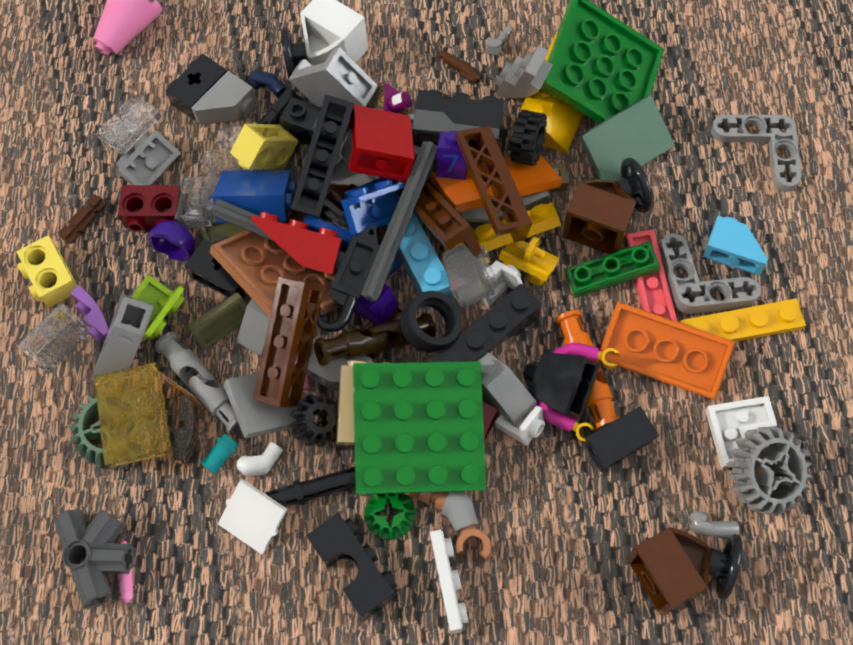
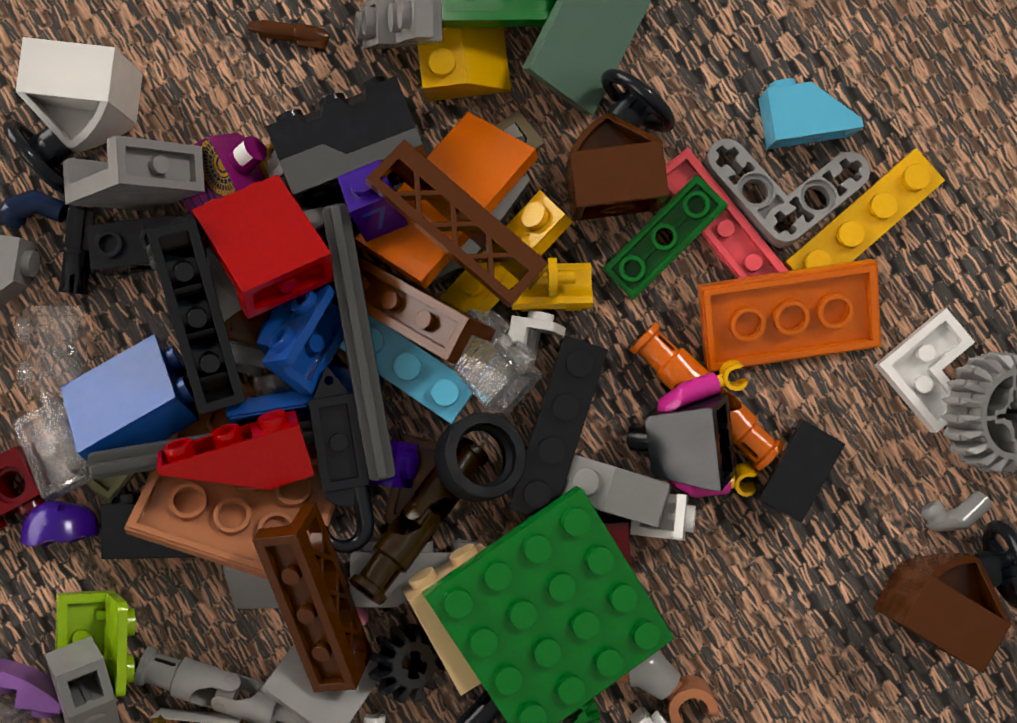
camera: 40 degrees left, 20 degrees up
(218, 321) = (195, 603): olive tile -> none
(263, 147) = (96, 324): light yellow brick -> none
(528, 137) = (459, 114): black tyre -> none

